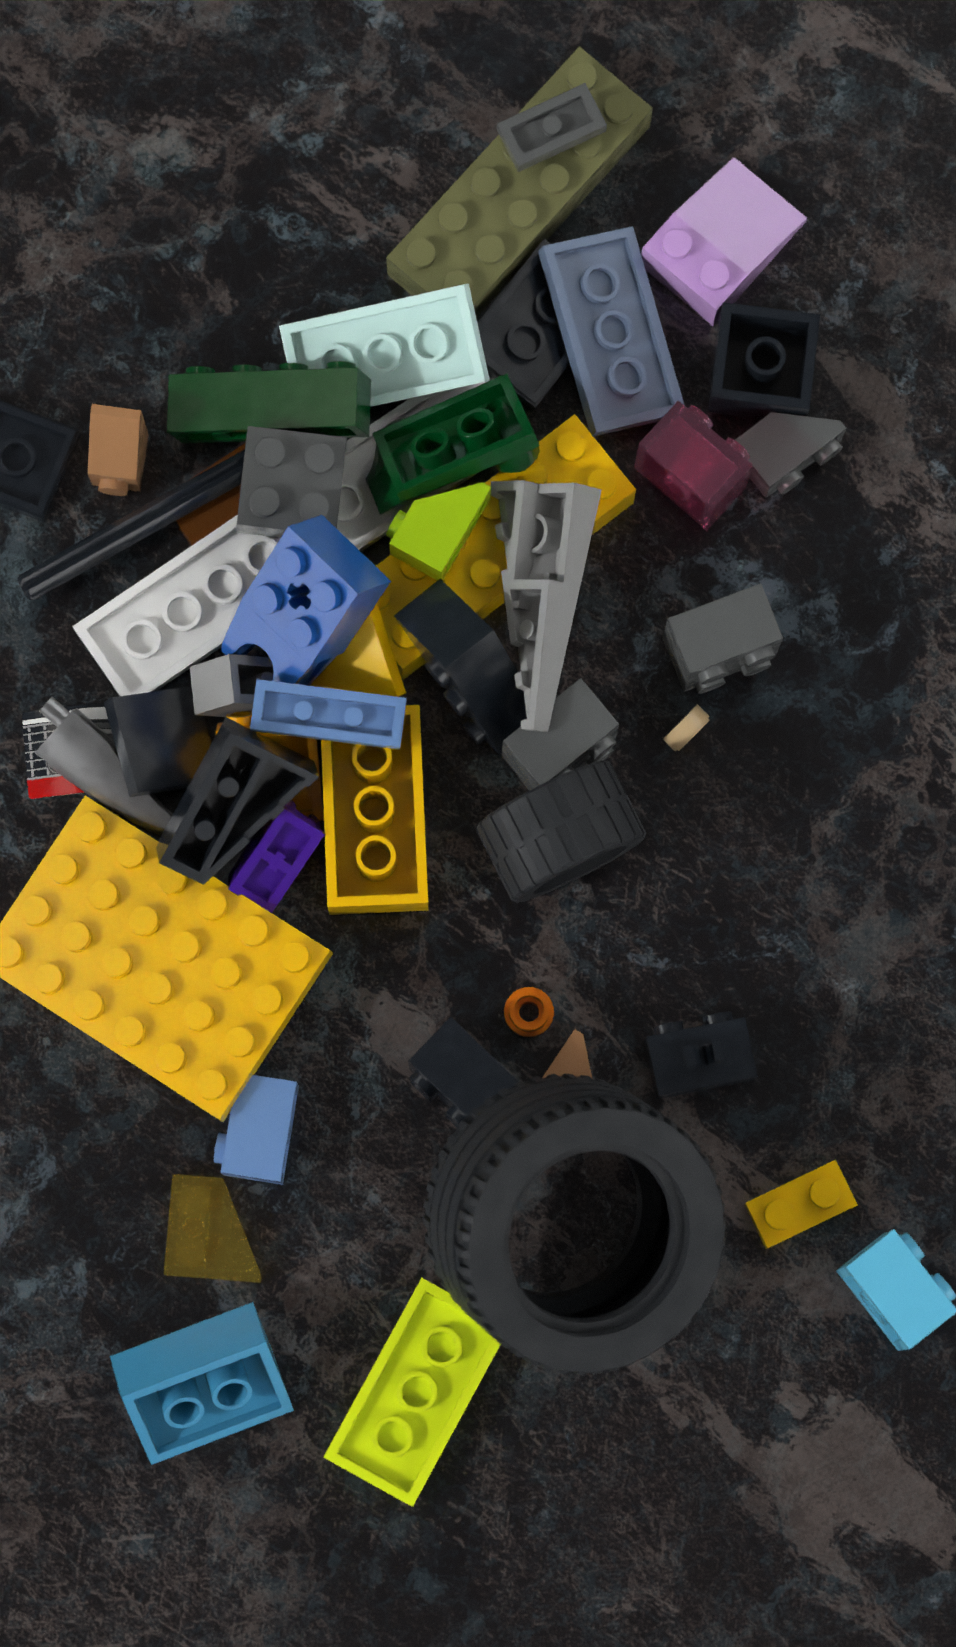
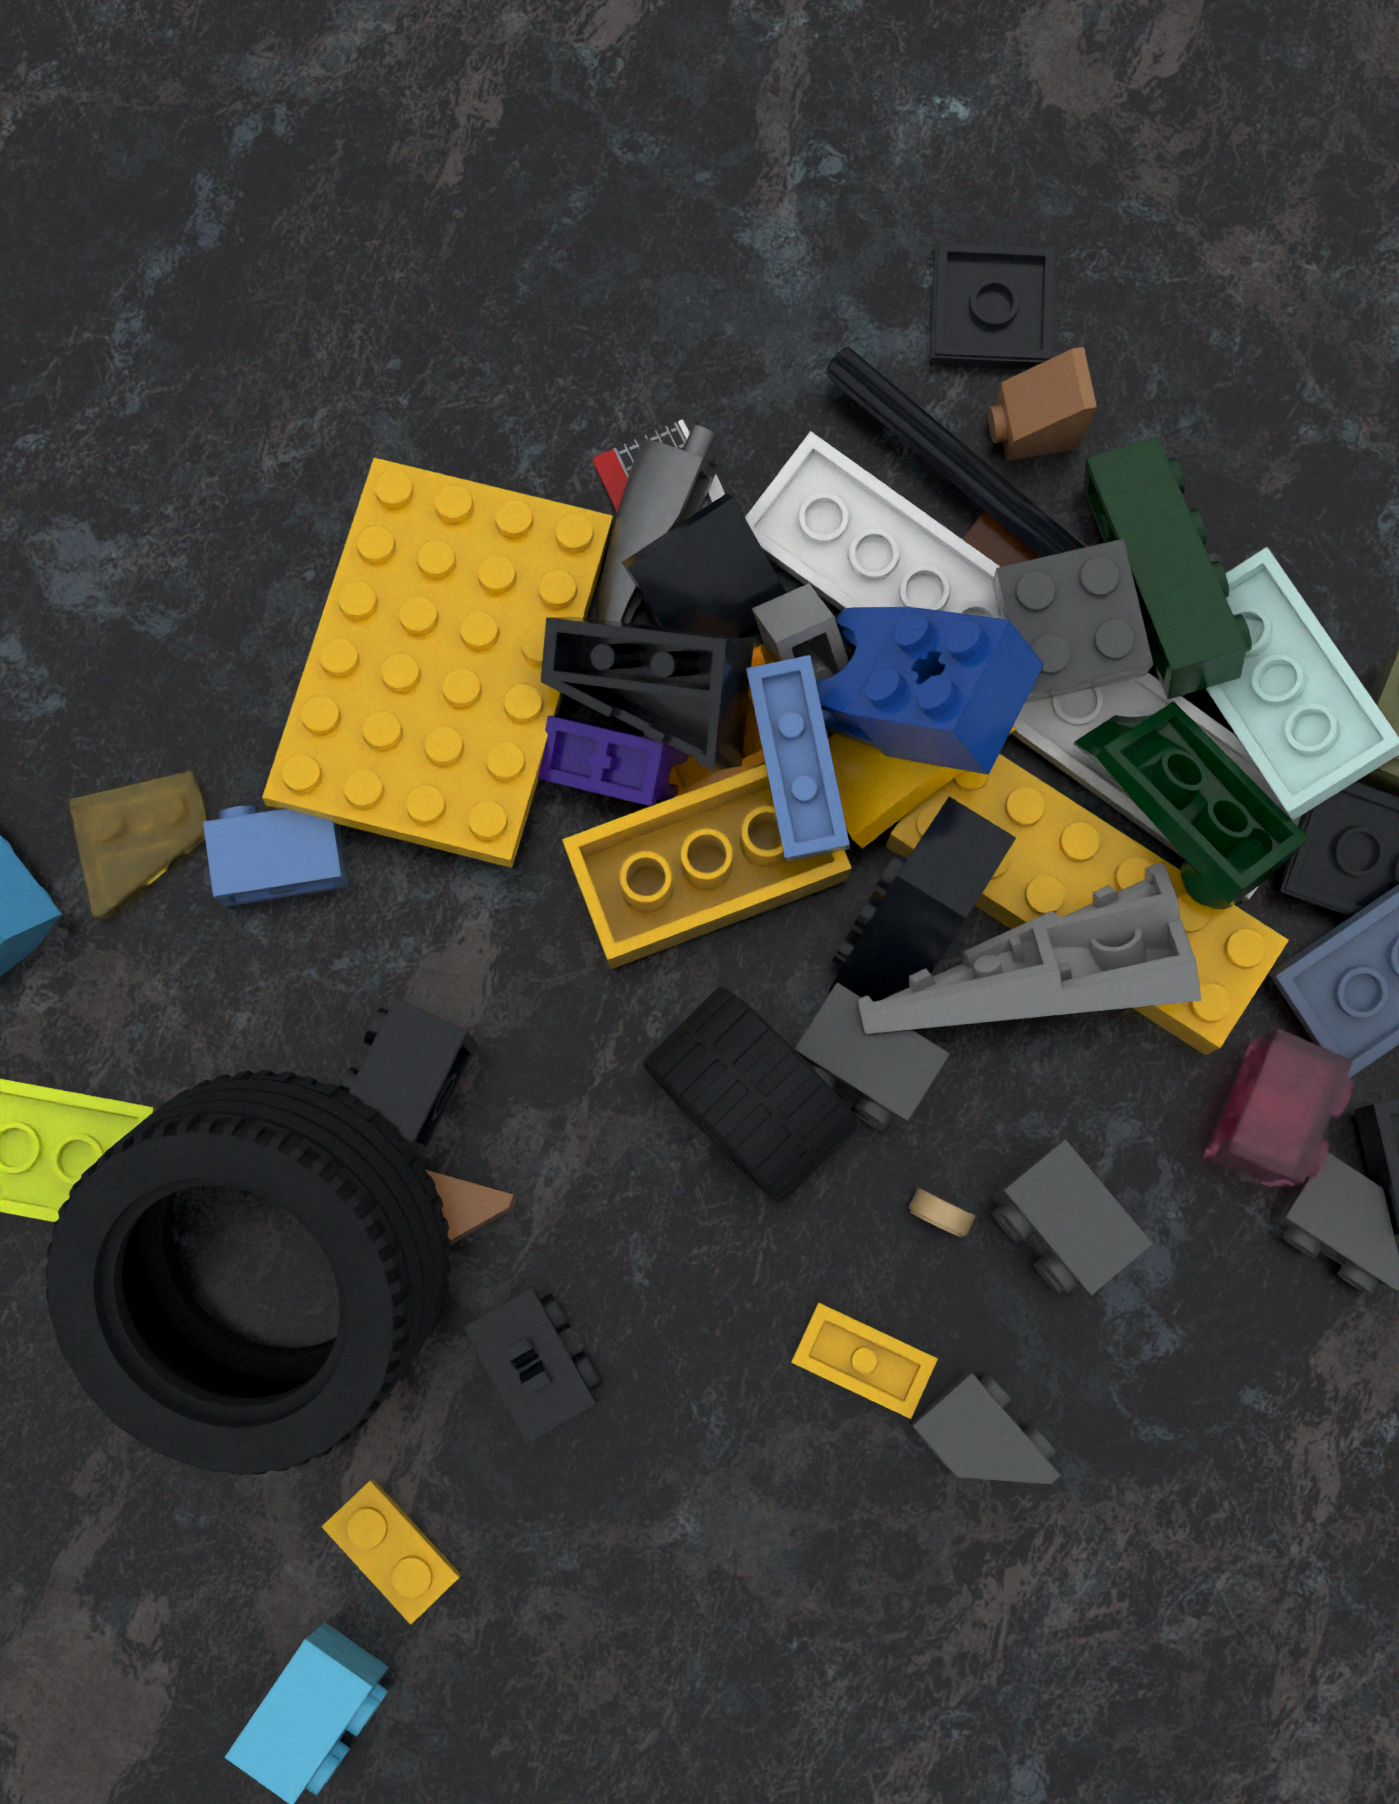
camera: 75 degrees right, 0 degrees up
(437, 528) = (1079, 814): lime slope -> none
(533, 996) = (509, 1118): orange plate -> none
(773, 819) = (864, 1360): none -> yellow plate
(852, 757) = (979, 1439): none -> dark grey slope

